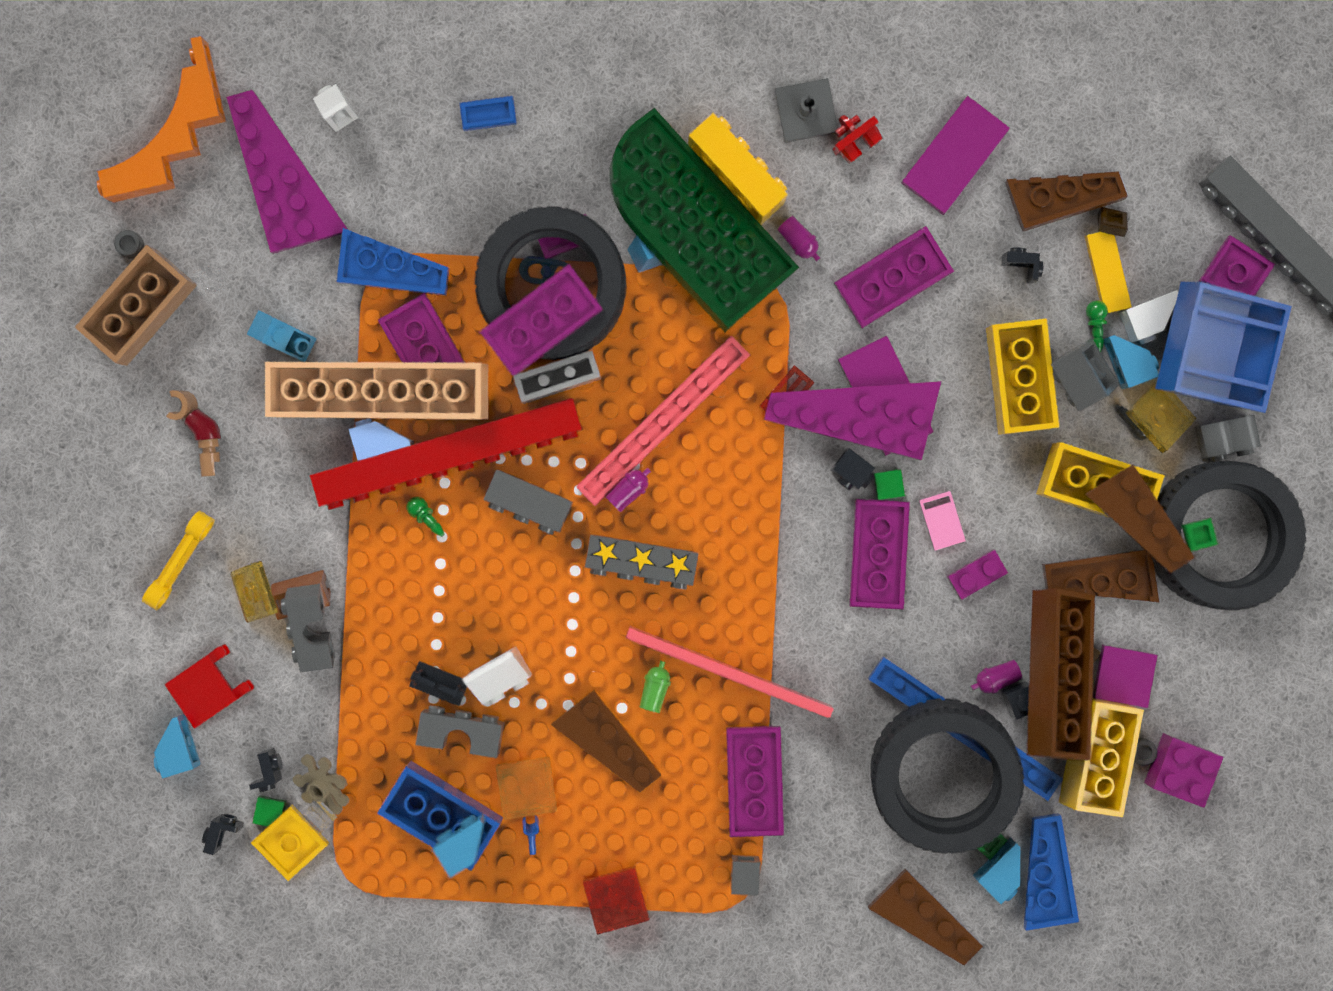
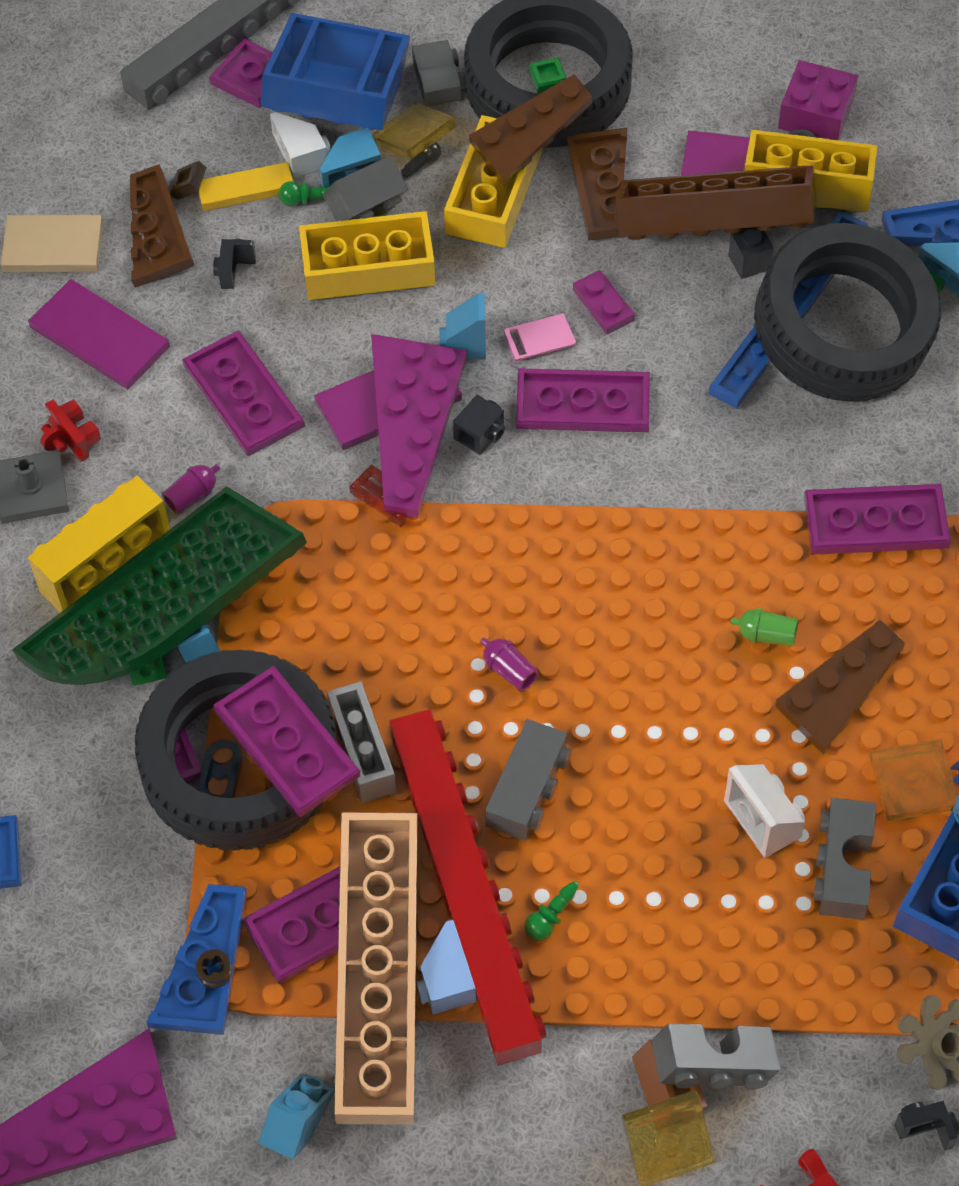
camera: 90 degrees left, 30 degrees down
(386, 271) = (215, 980): none -> dark brown bush
(438, 683) = (782, 889): black hinge -> none
(641, 560) = (600, 645): dark grey brick -> none
(663, 420) = (421, 632): coral tile -> none
(729, 672) = (737, 547): coral tile -> none
(889, 484) = (498, 389): green tile -> none
(942, 458) = (466, 328): none -> dark azure slope
(997, 677) = (725, 276): magenta piece -> none
(1050, 109) = (52, 243): none -> tan tile

